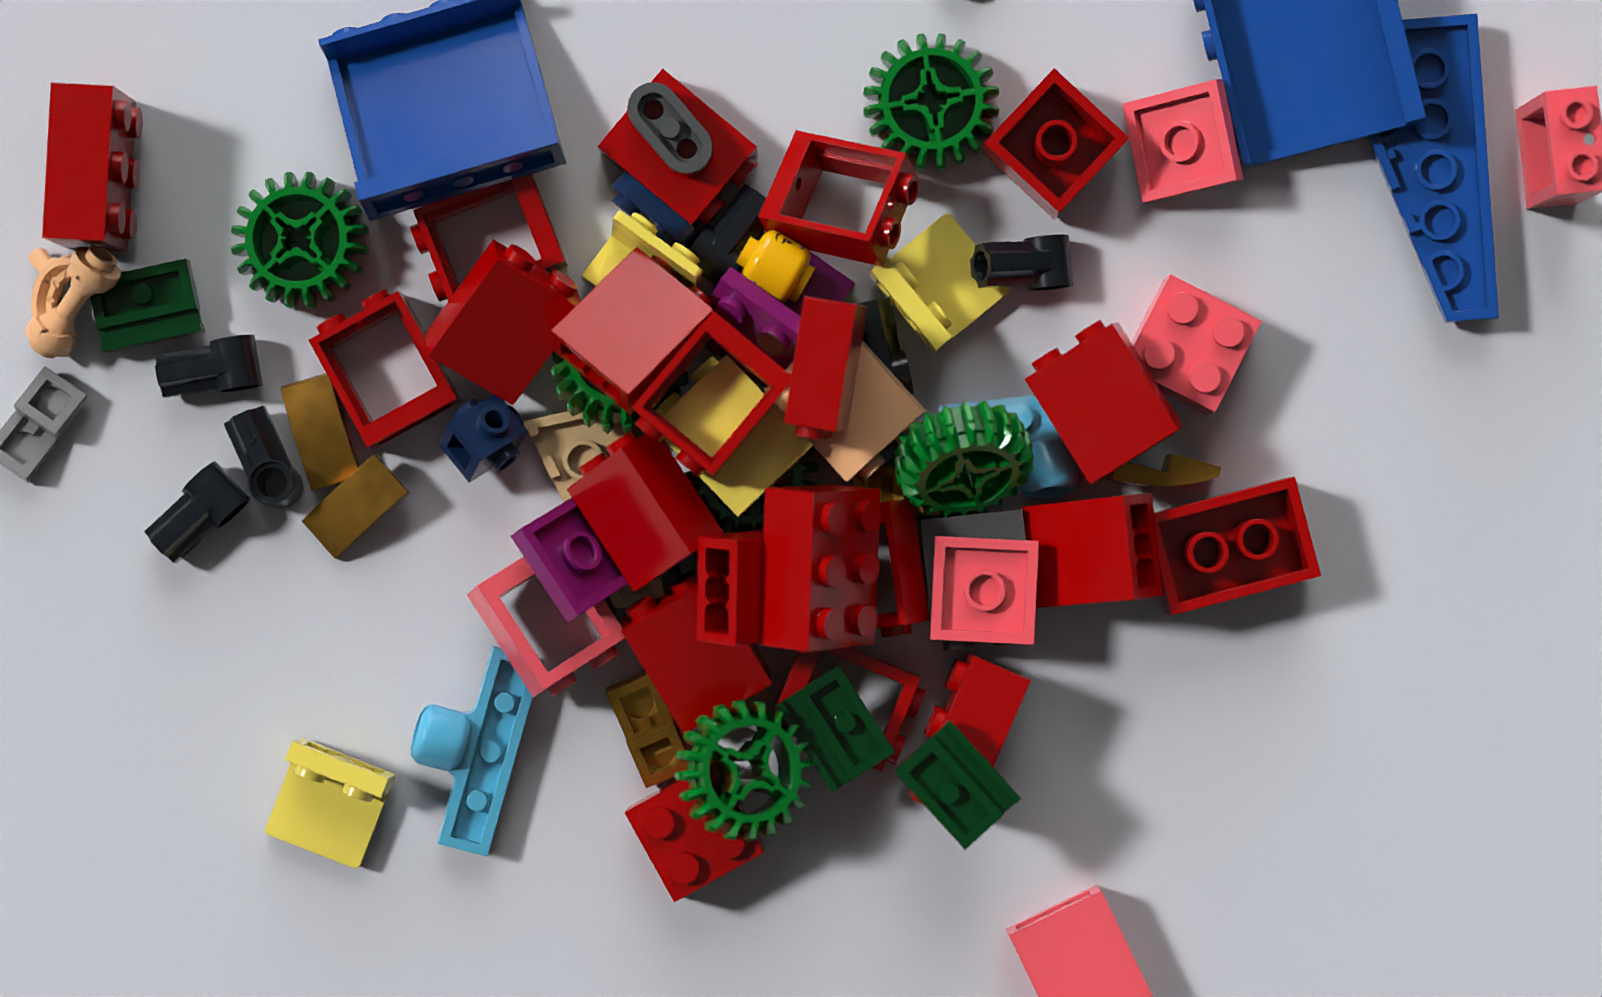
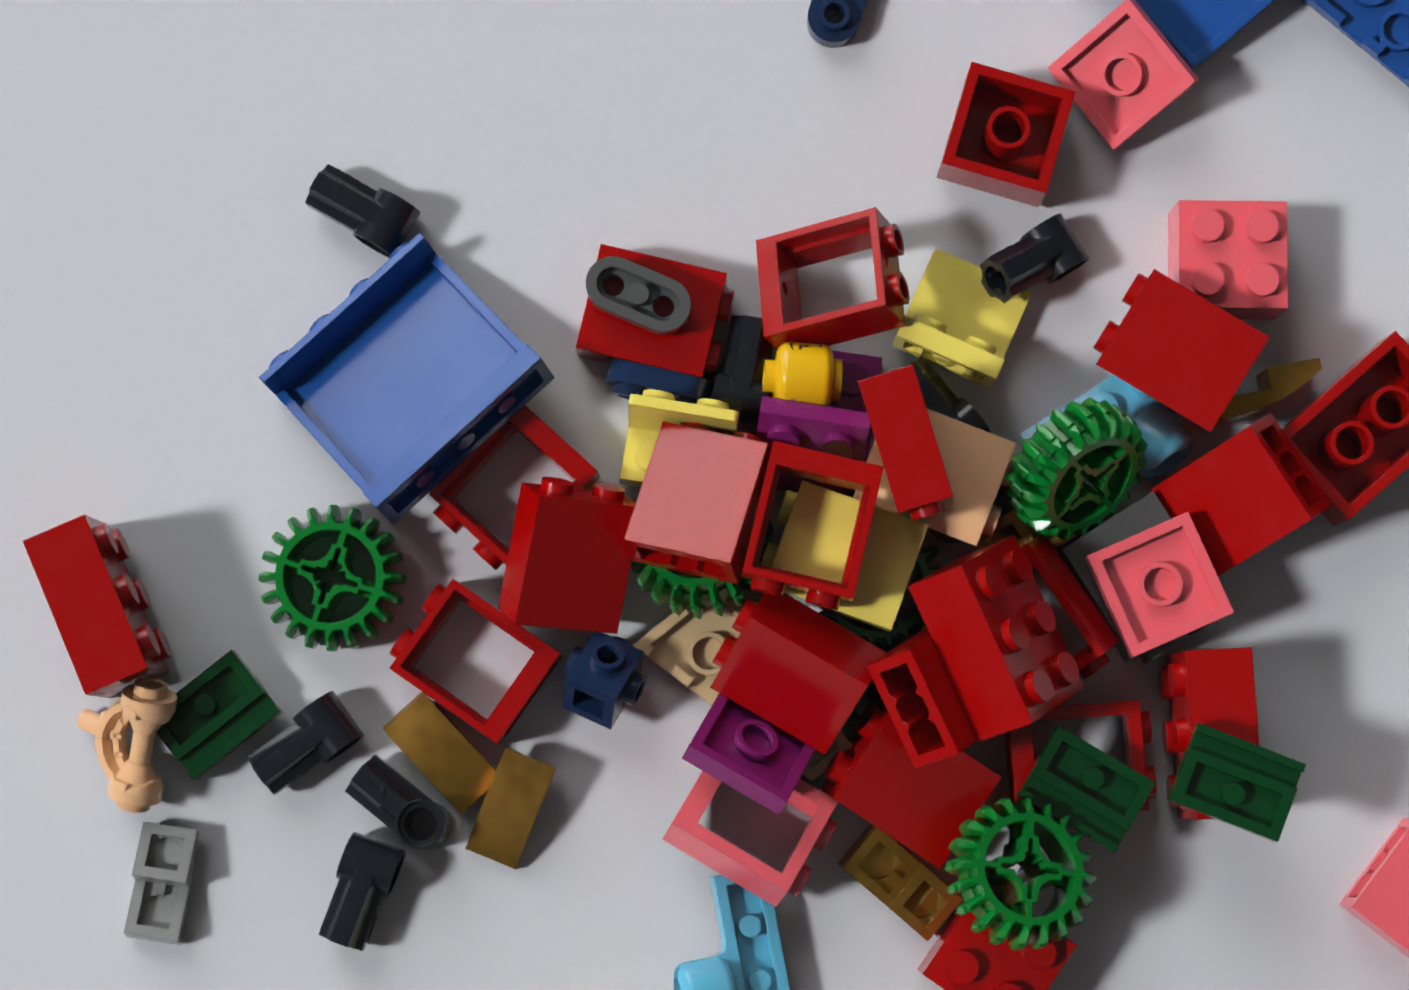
camera: 25 degrees left, 5 degrees down
(954, 97) = (854, 132): green gear -> none

